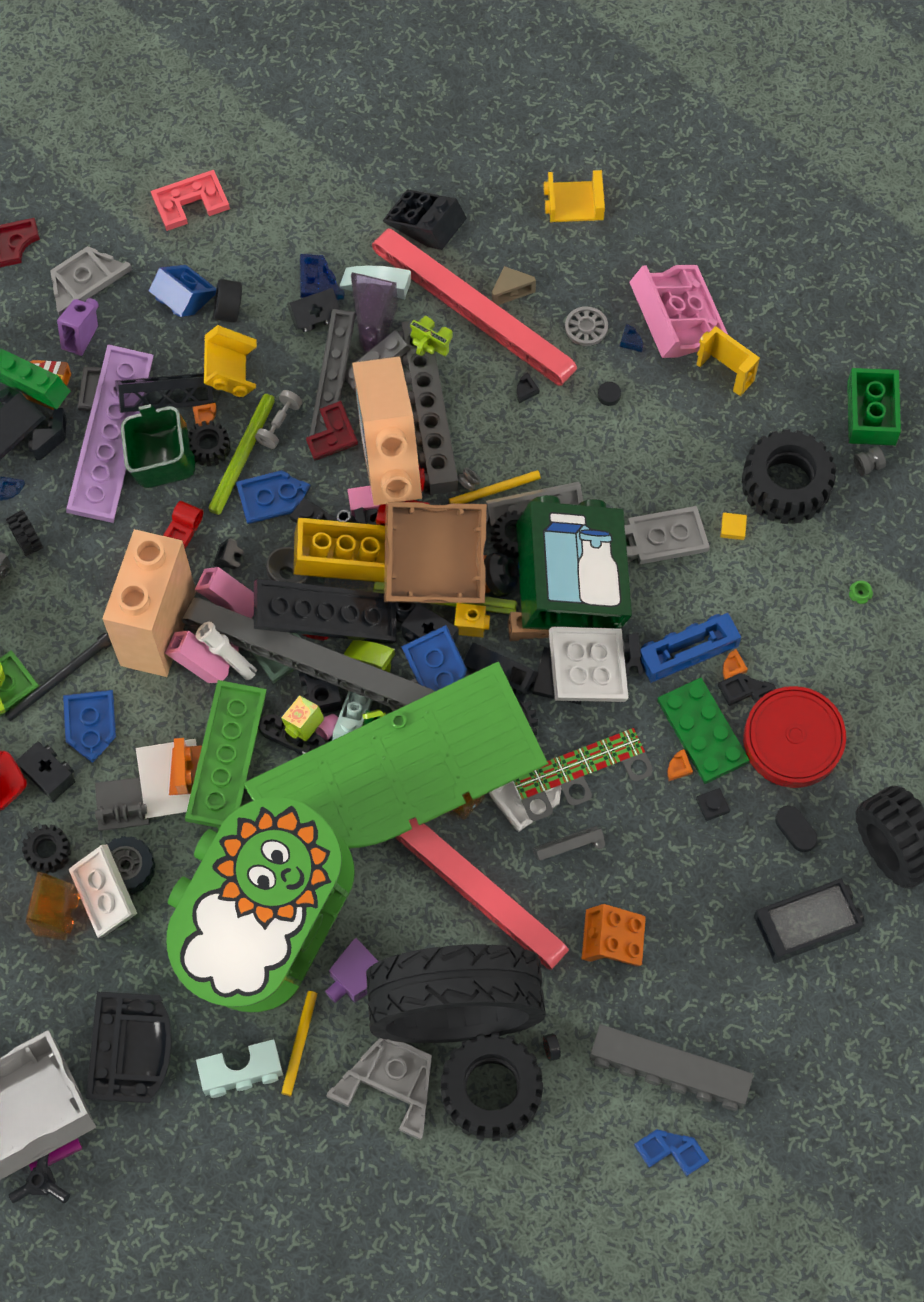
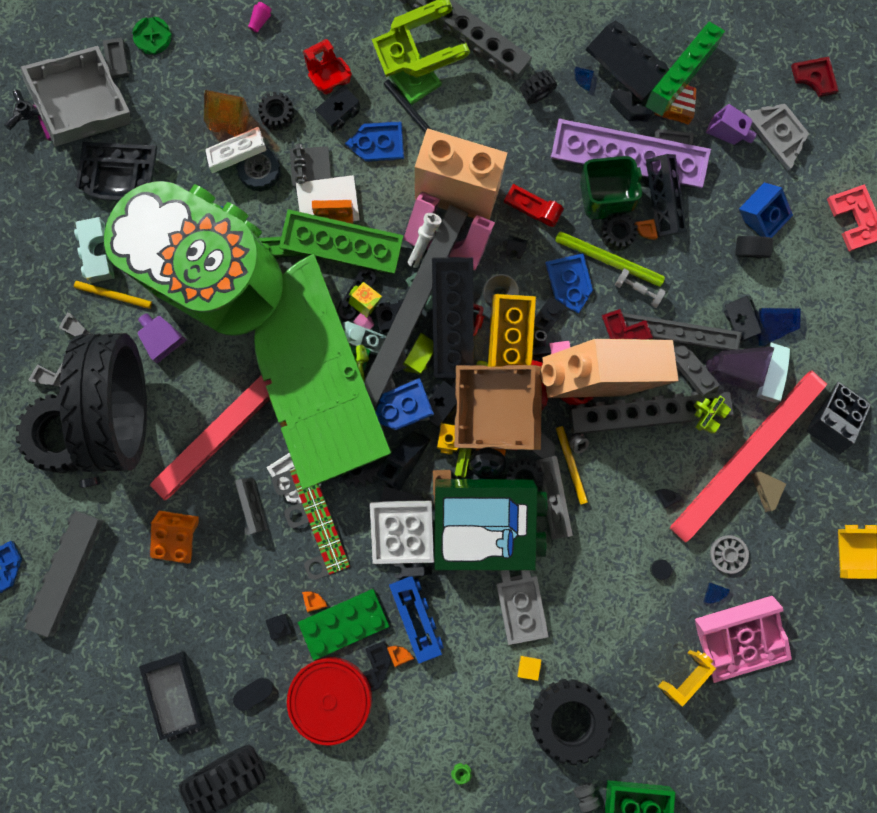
camera: 85 degrees right, 15 degrees up
(226, 361) = (692, 245): yellow panel -> none

